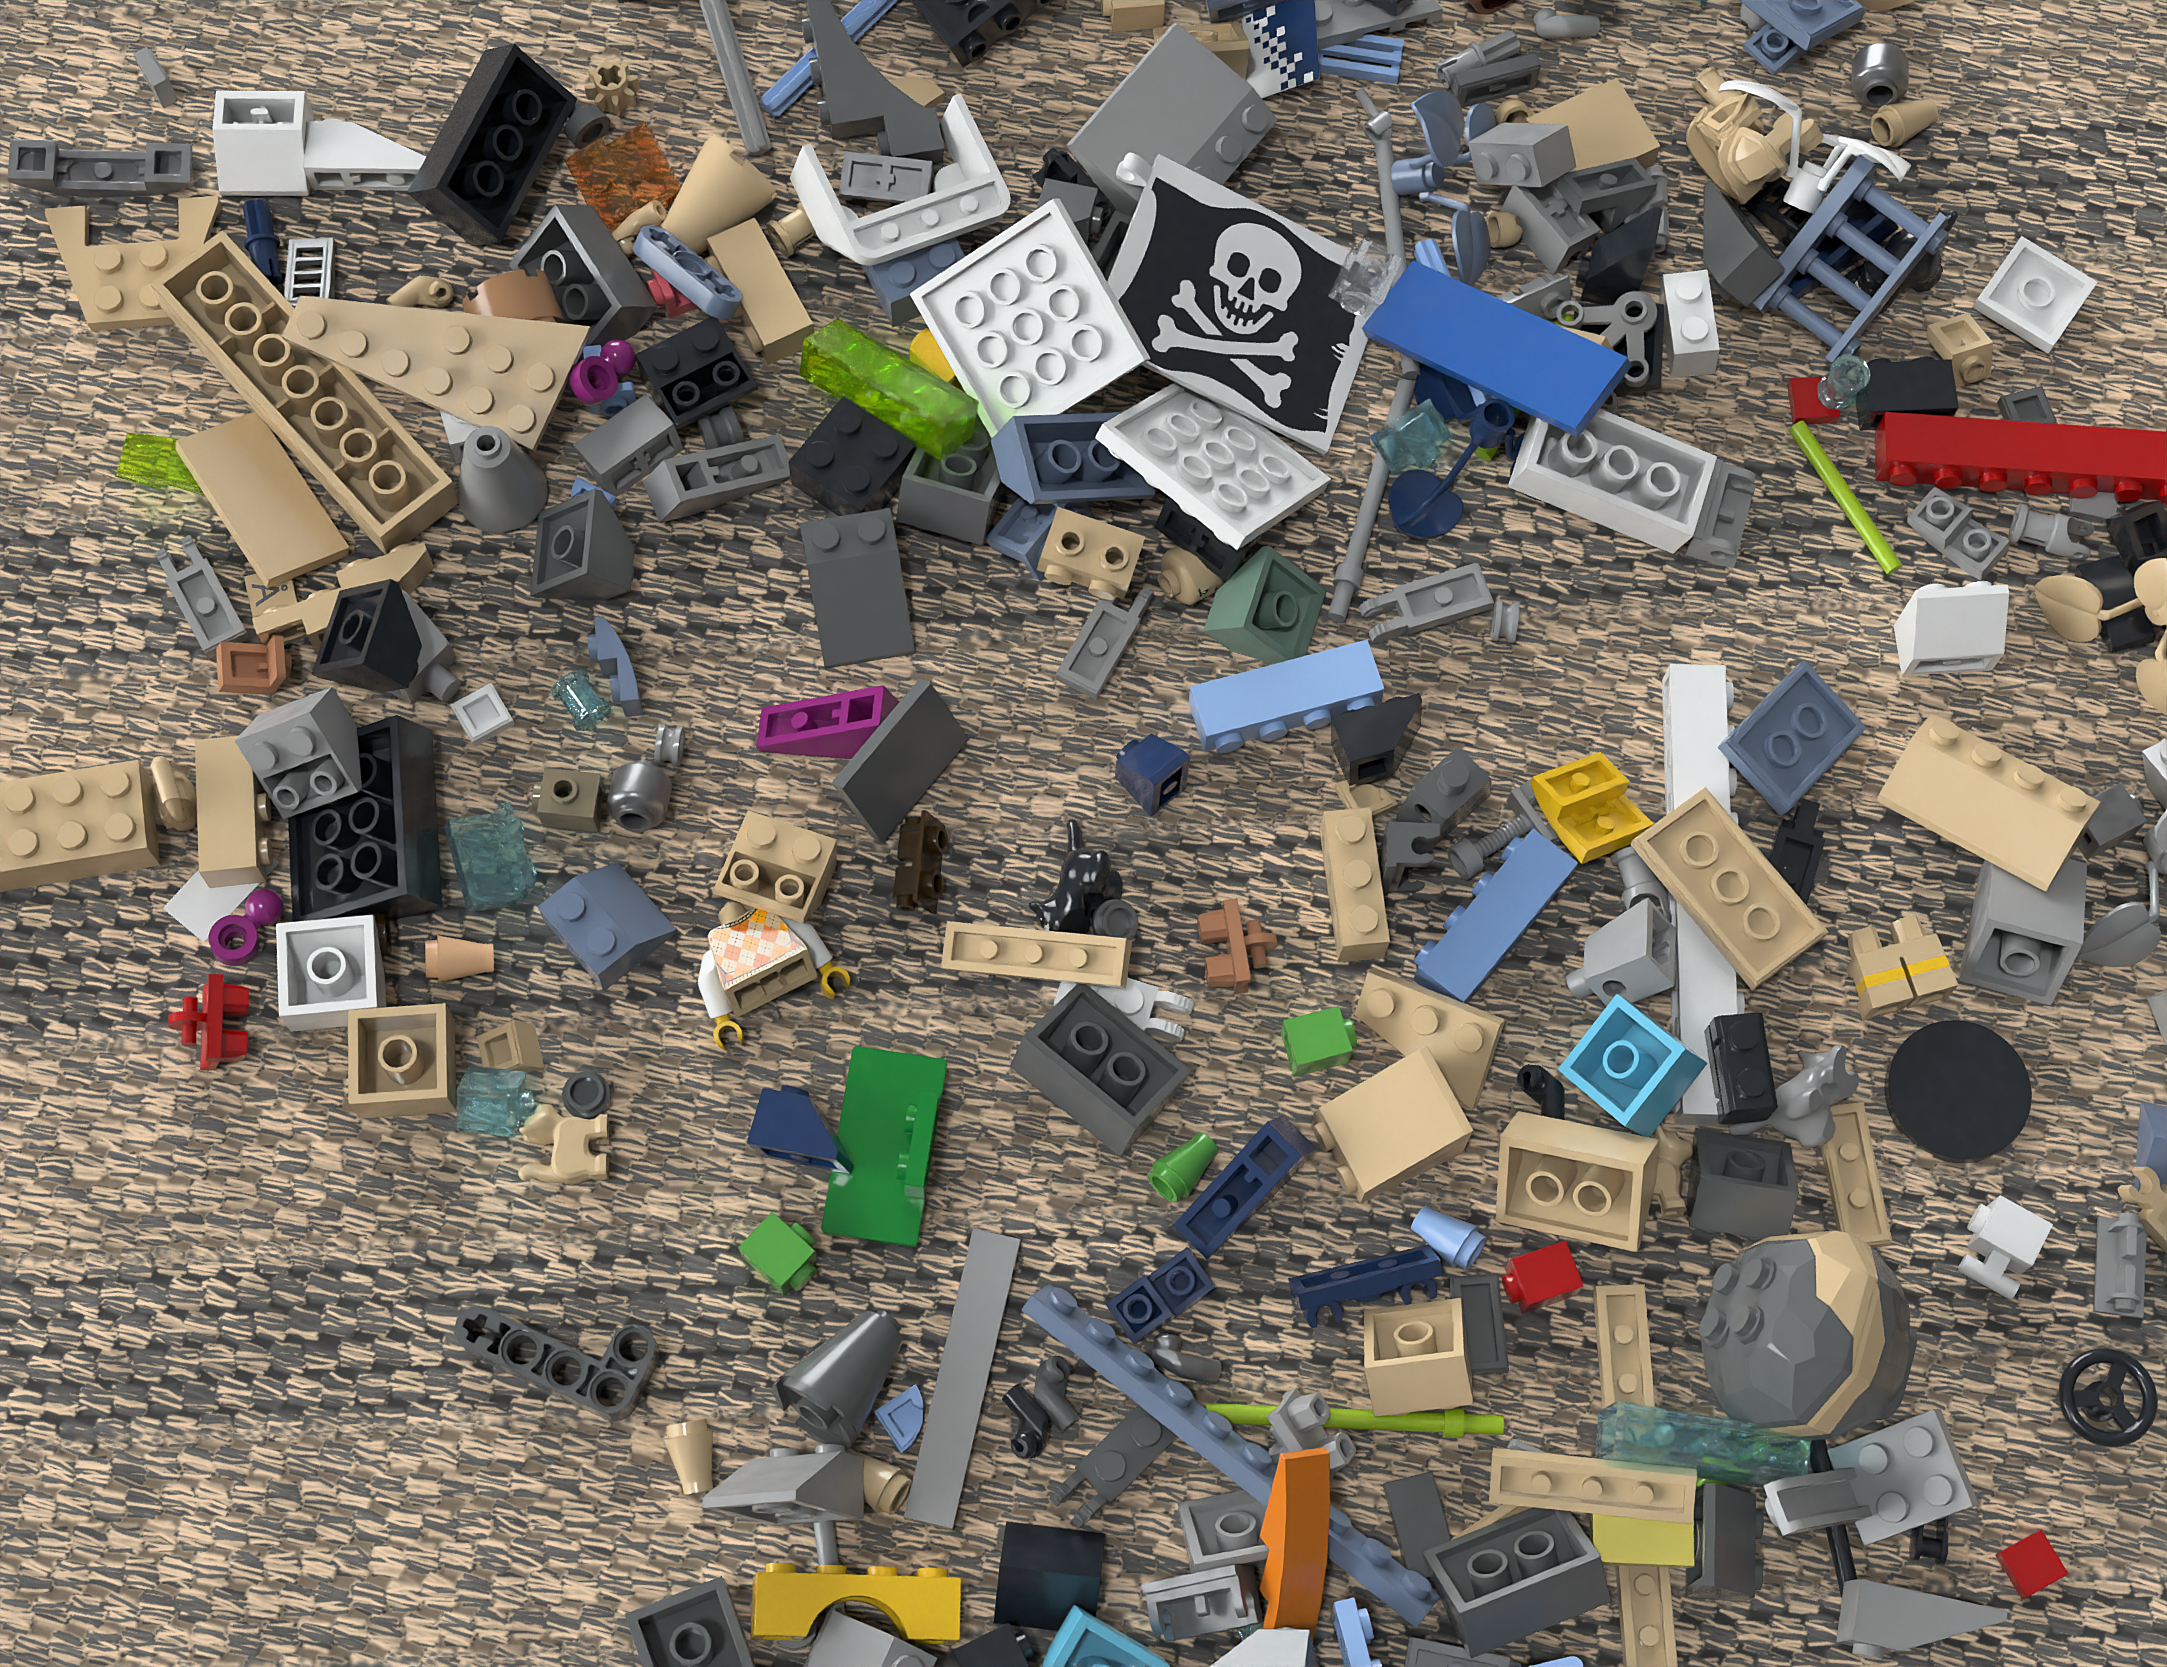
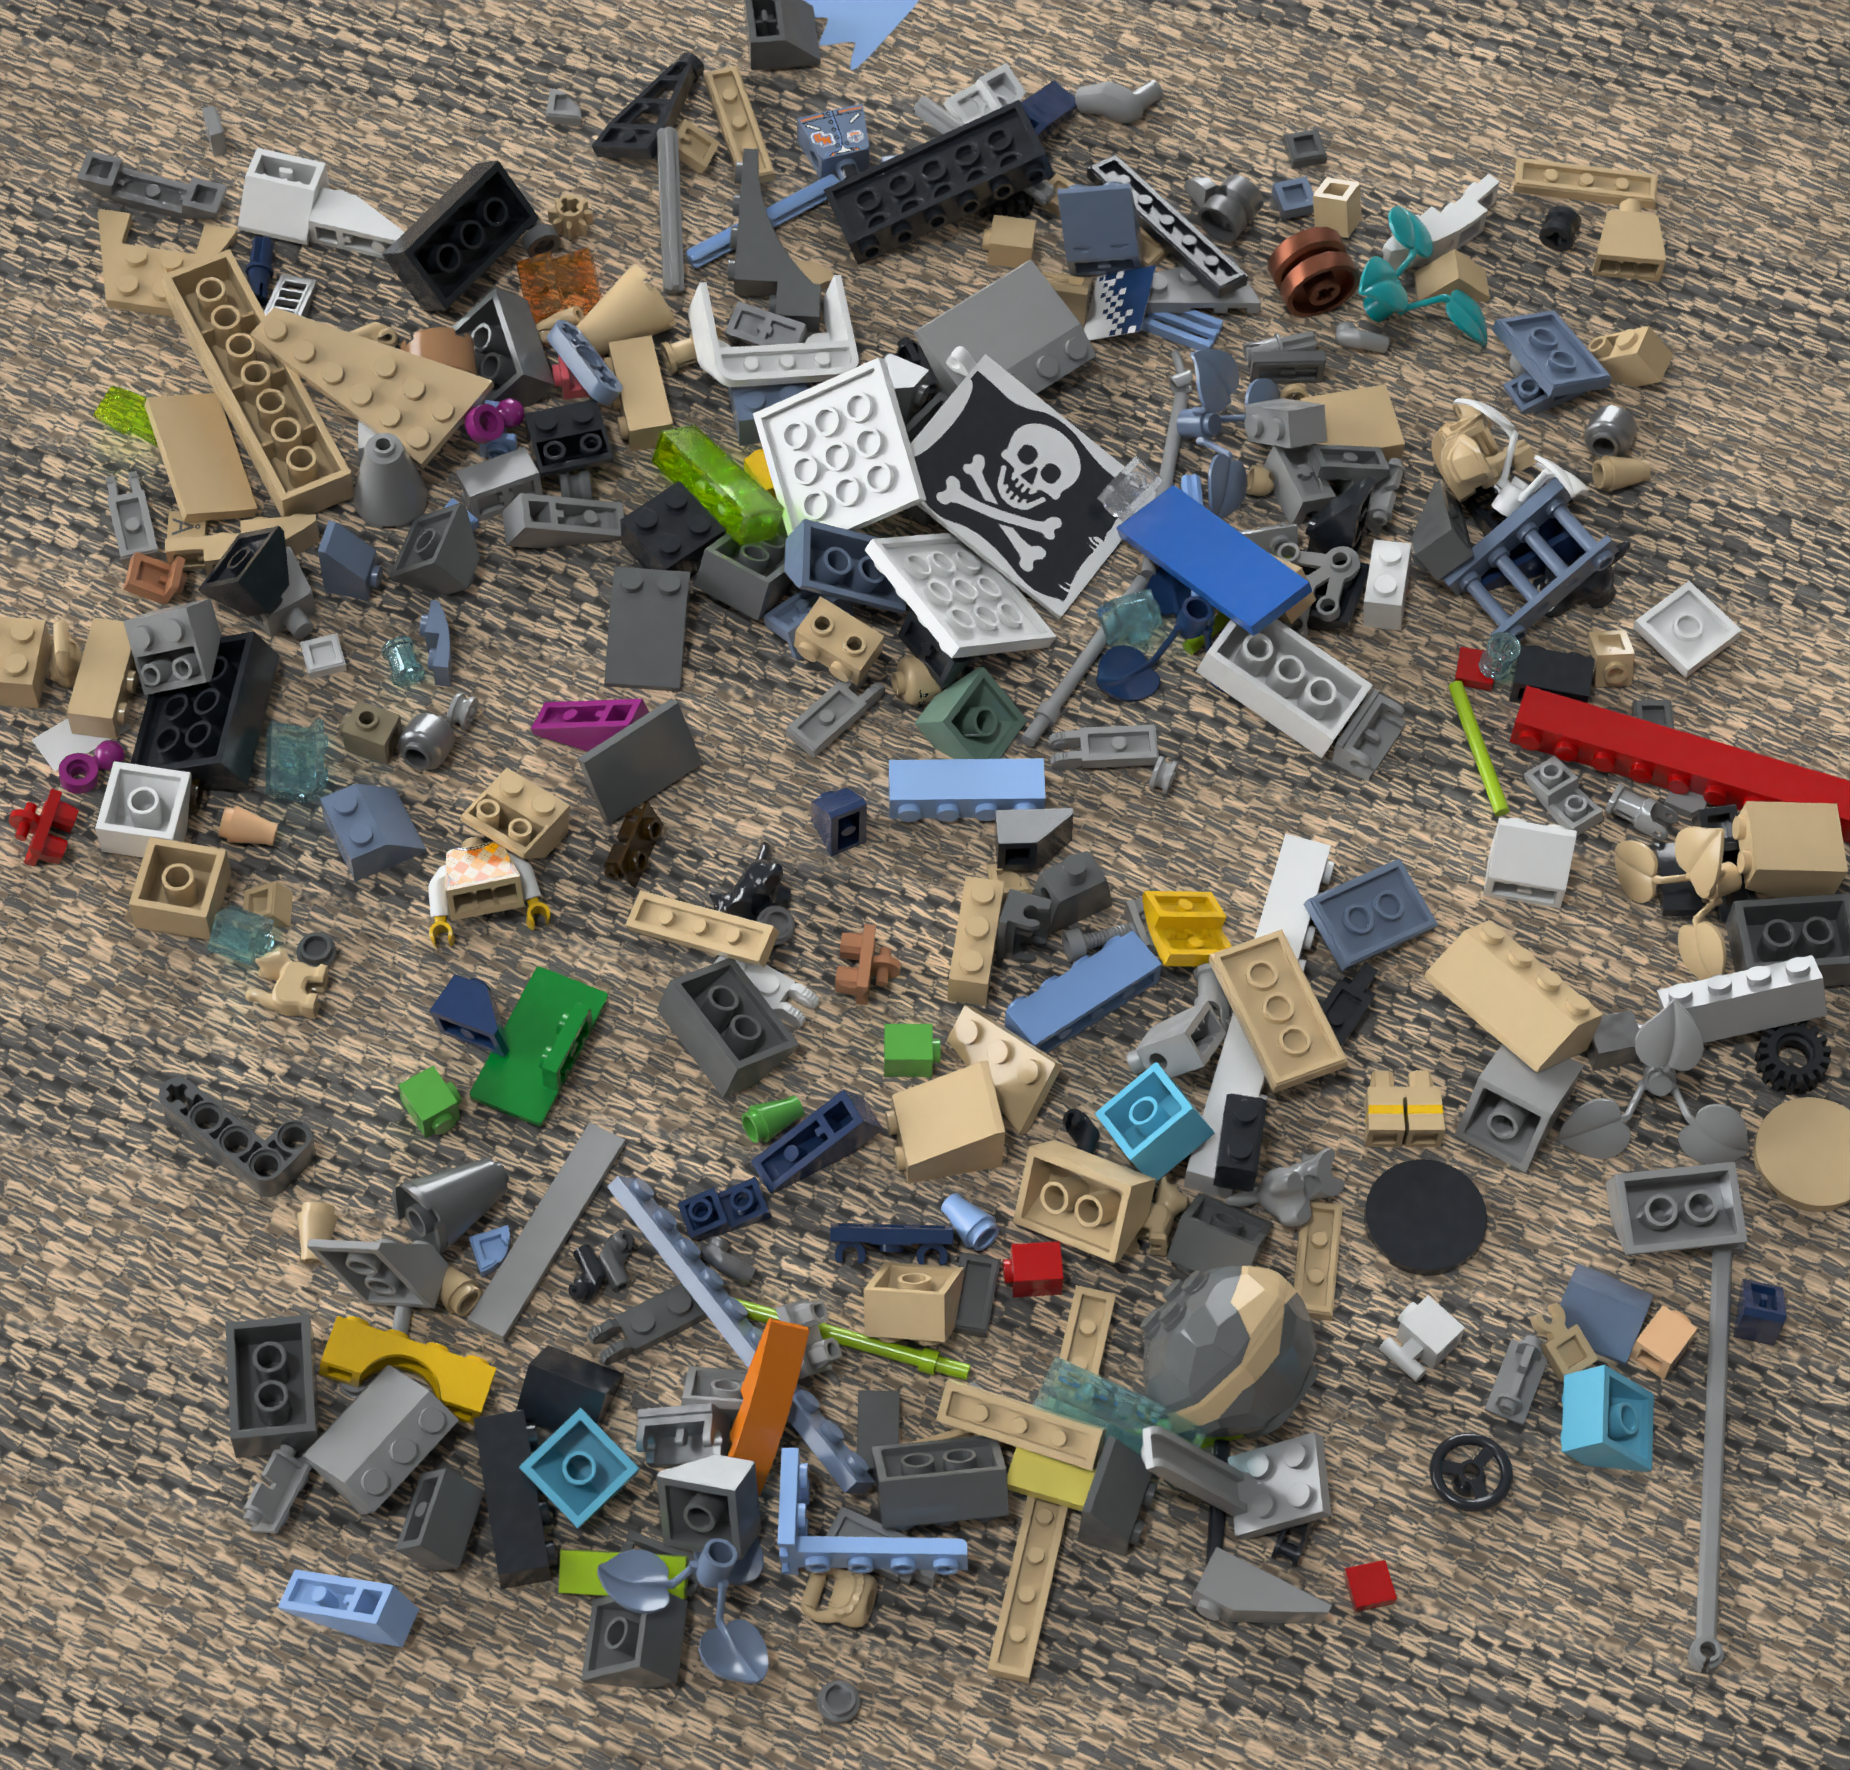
camera: 15 degrees right, 10 degrees down
(481, 594) = (348, 563): none -> sand blue slope

